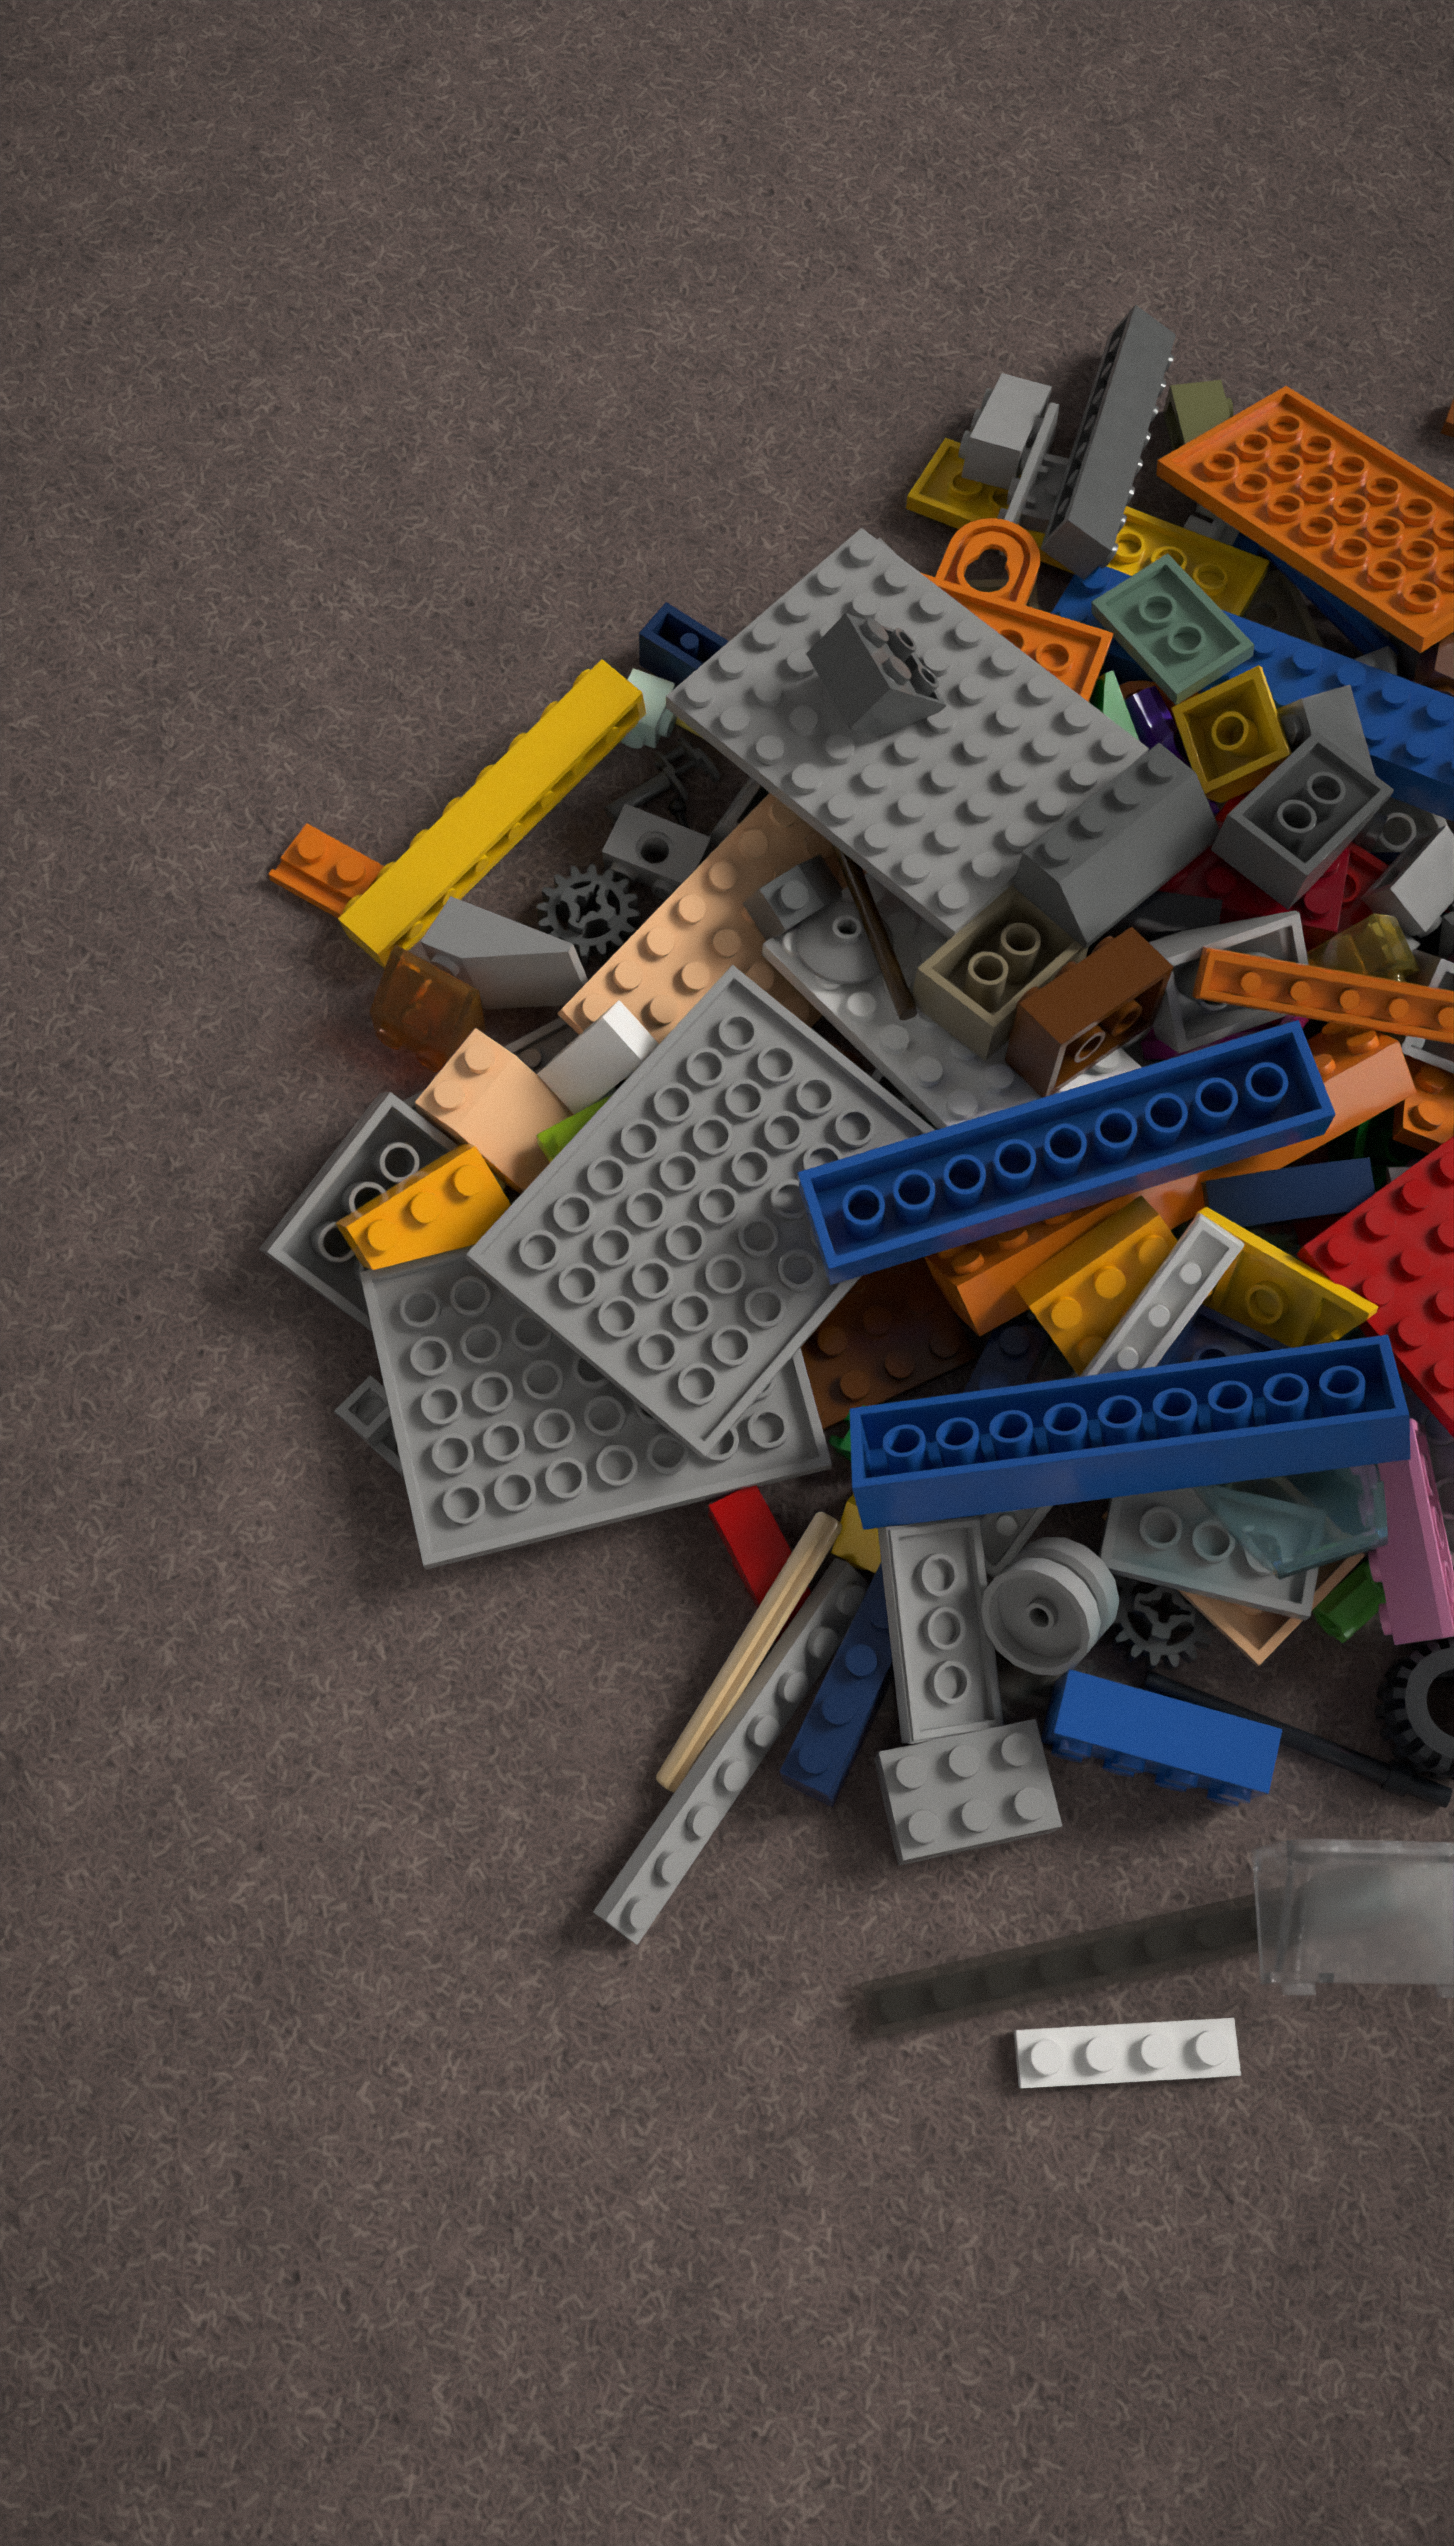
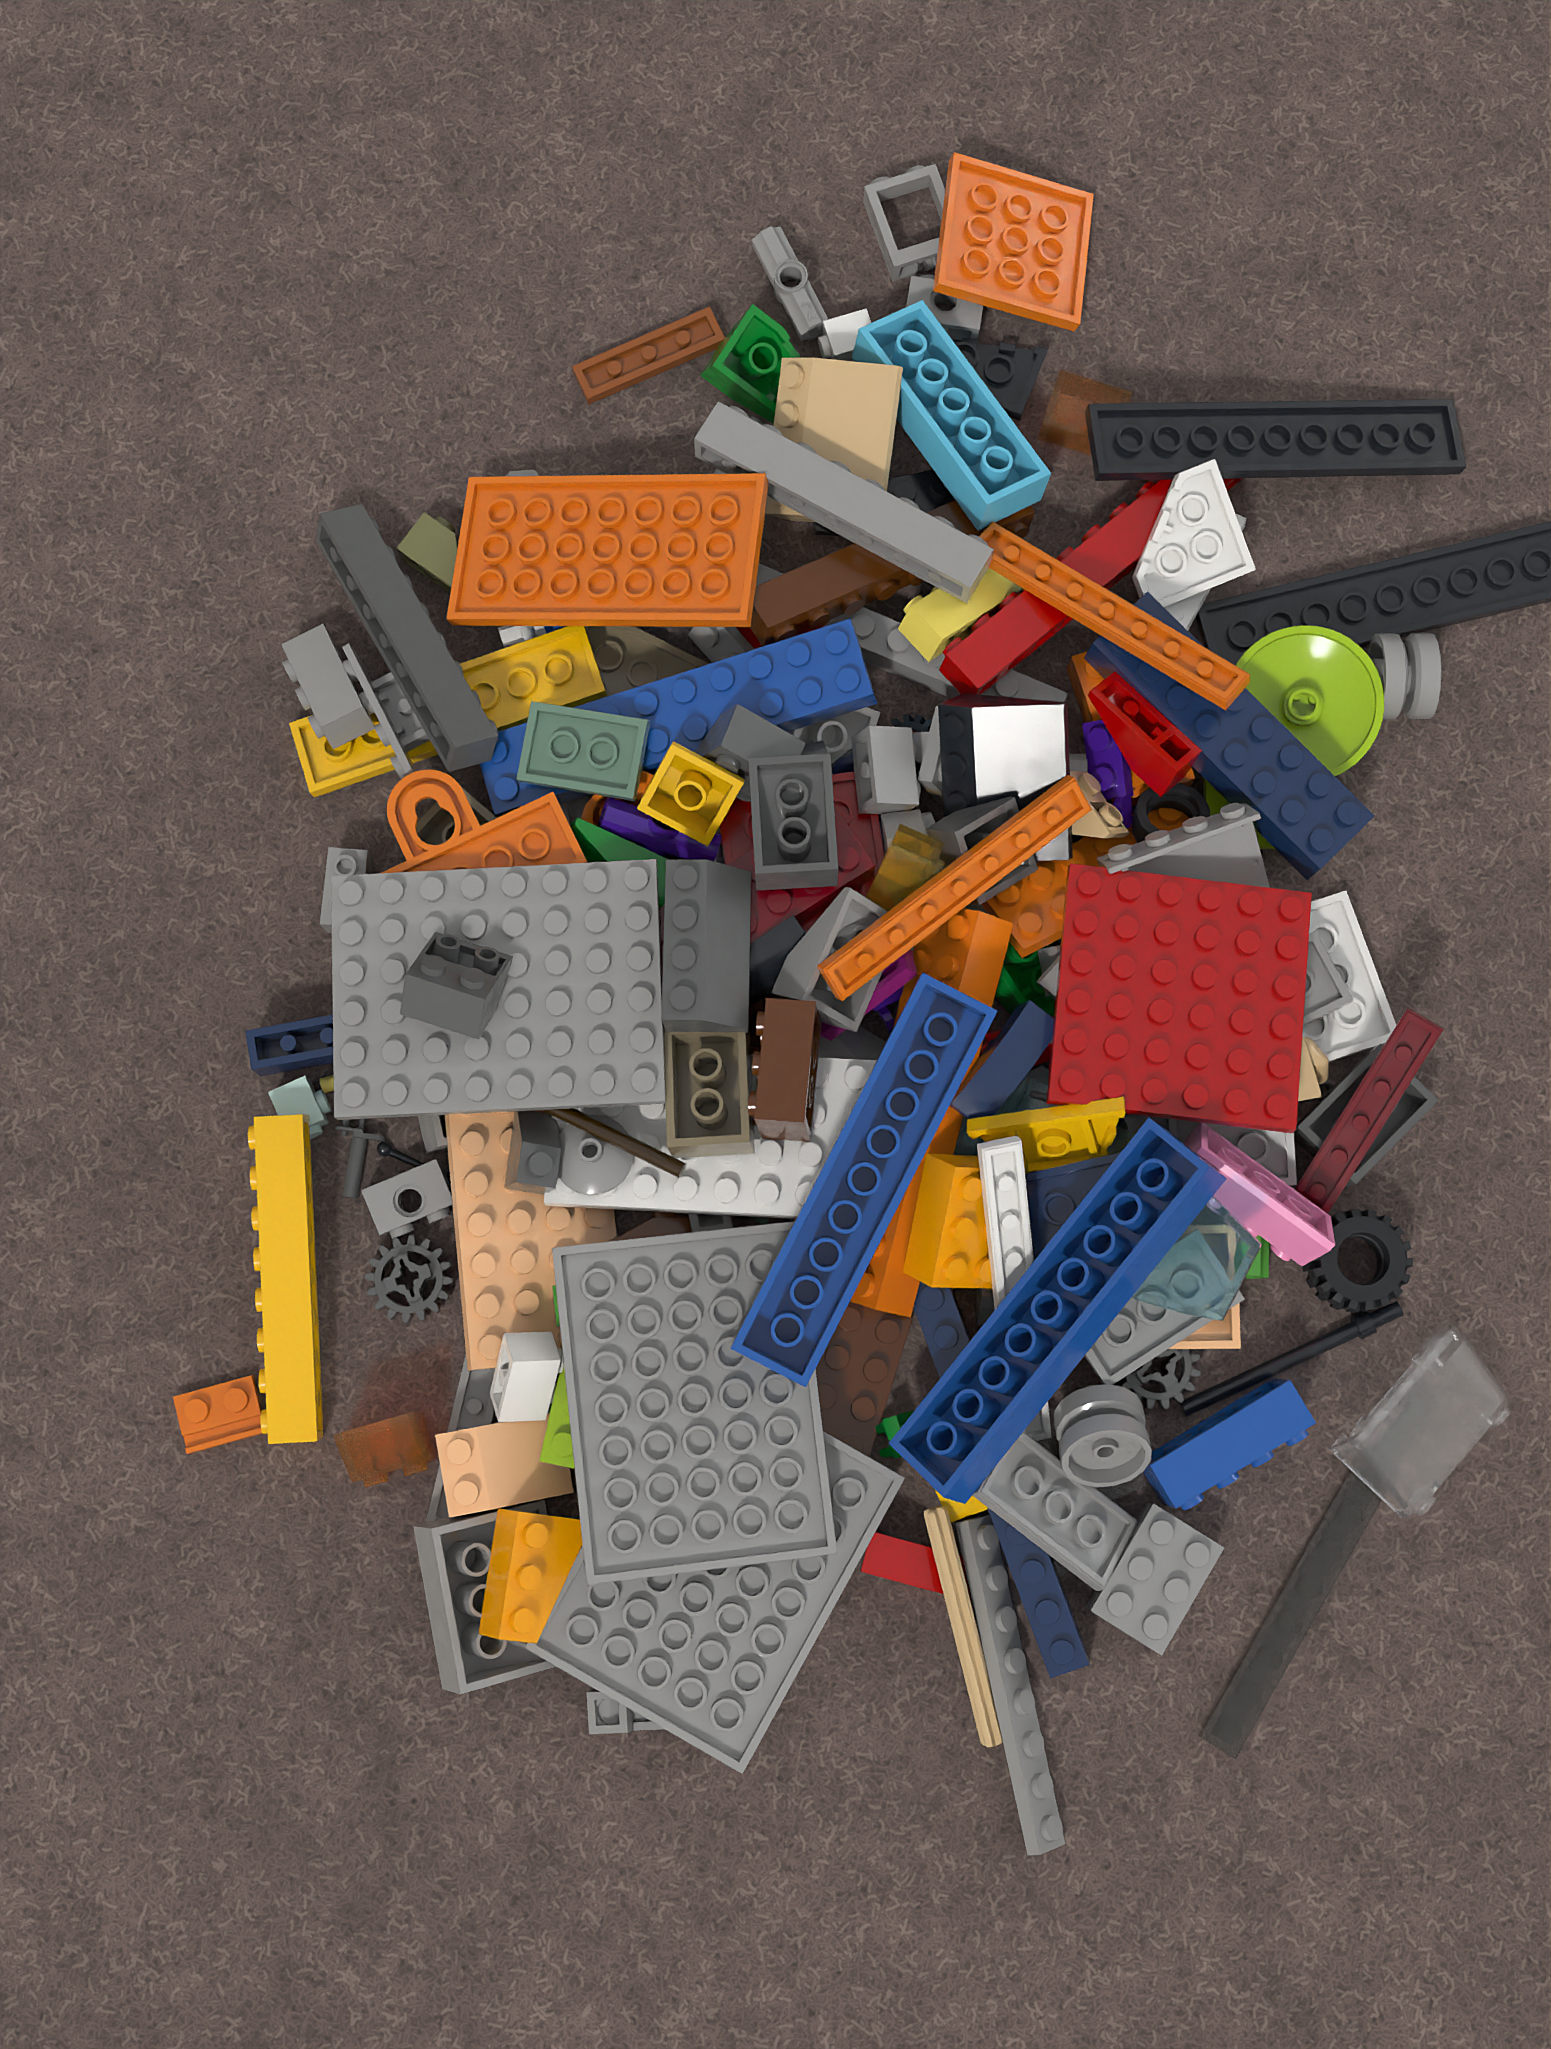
camera: 45 degrees left, 10 degrees up
(503, 958) = (384, 1380): light grey slope -> none
(1126, 2053) = (1367, 1625): white plate -> none

